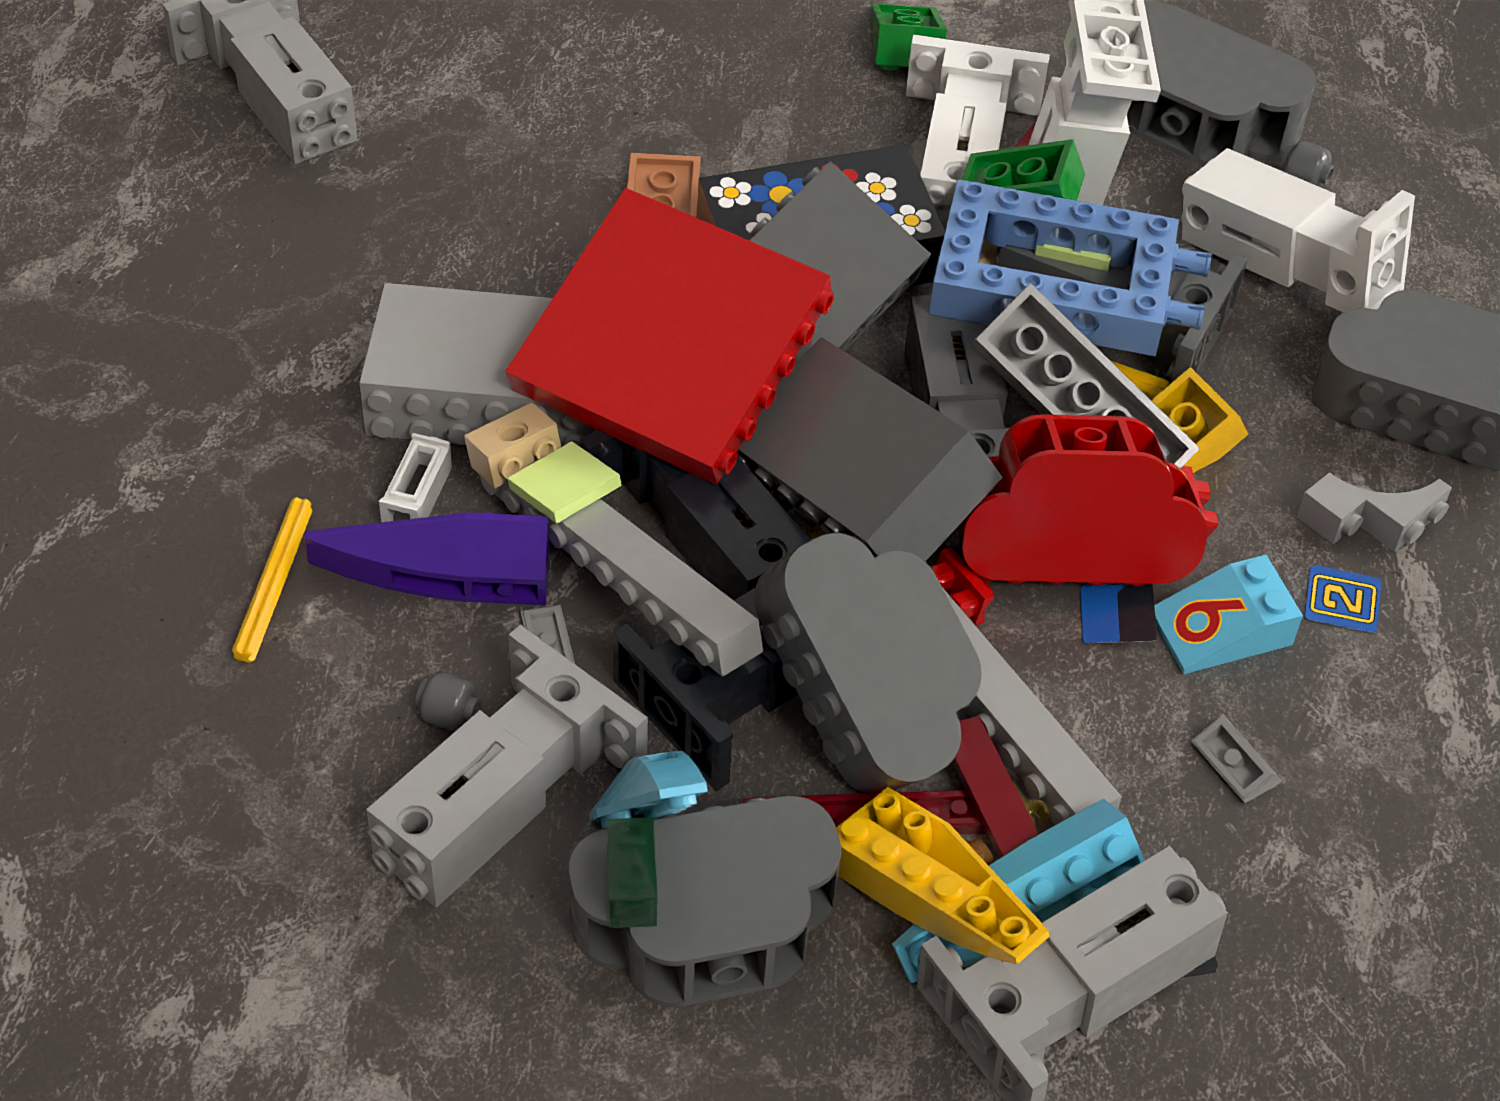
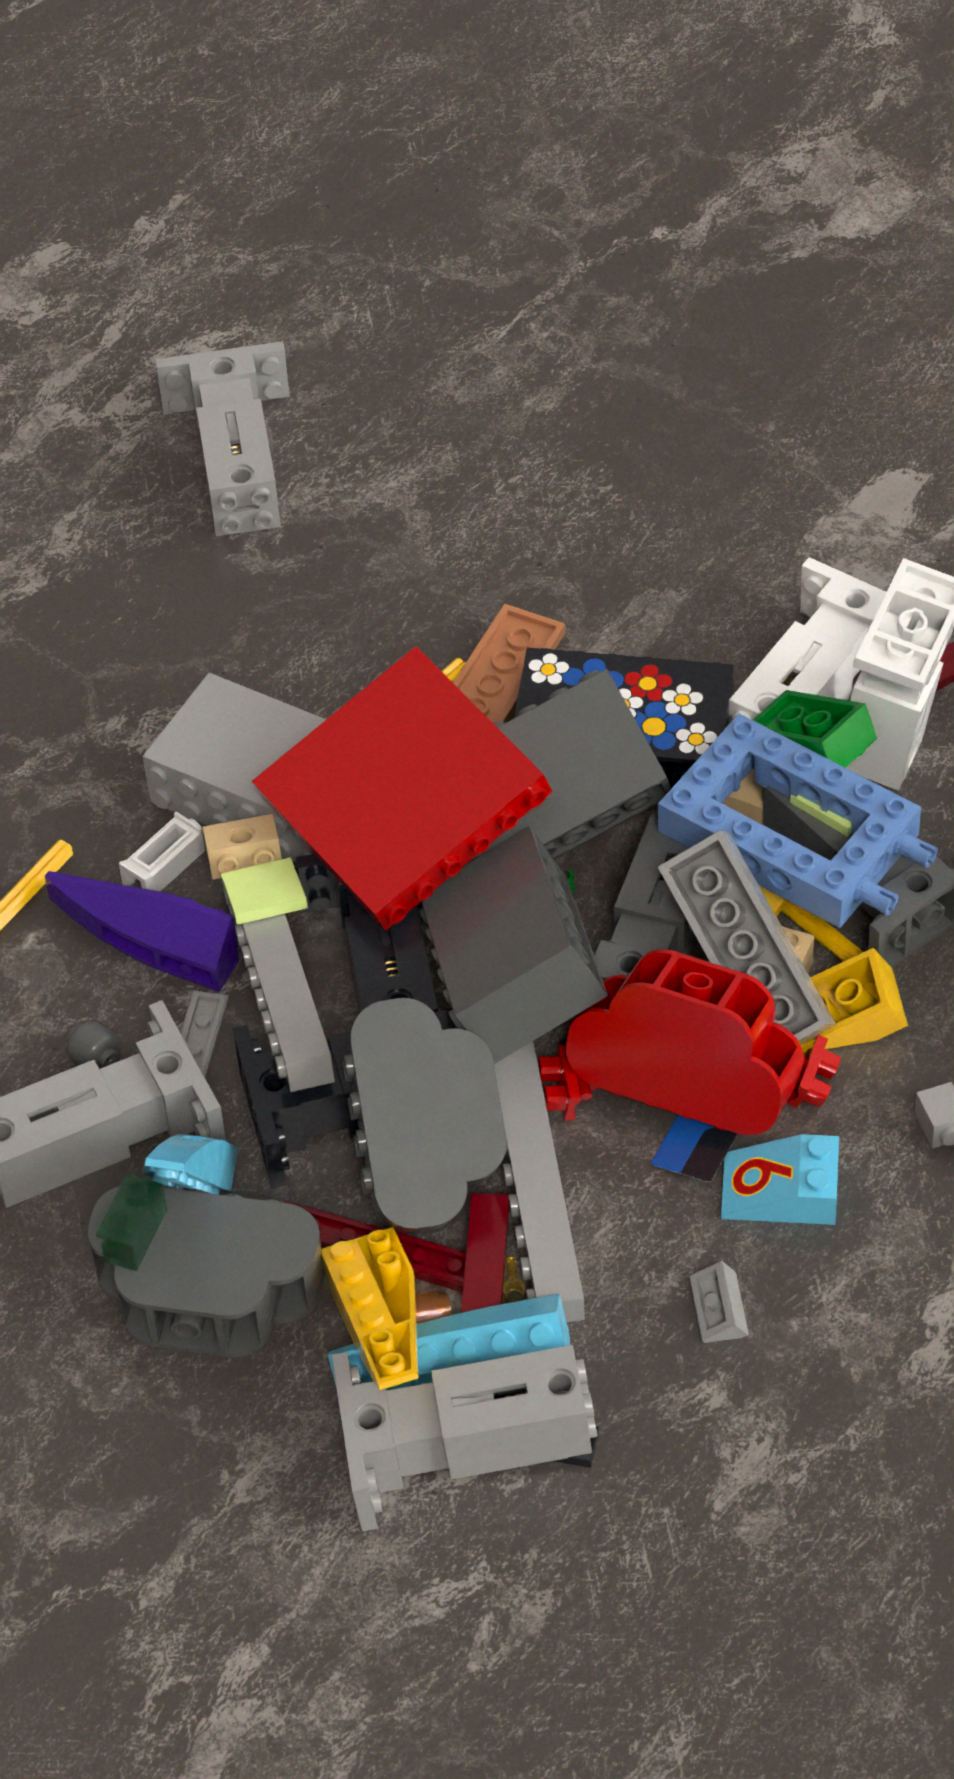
camera: 30 degrees right, 0 degrees up
(894, 30) = (832, 541): green slope -> none
(1343, 599) = (908, 1199): sticker -> none

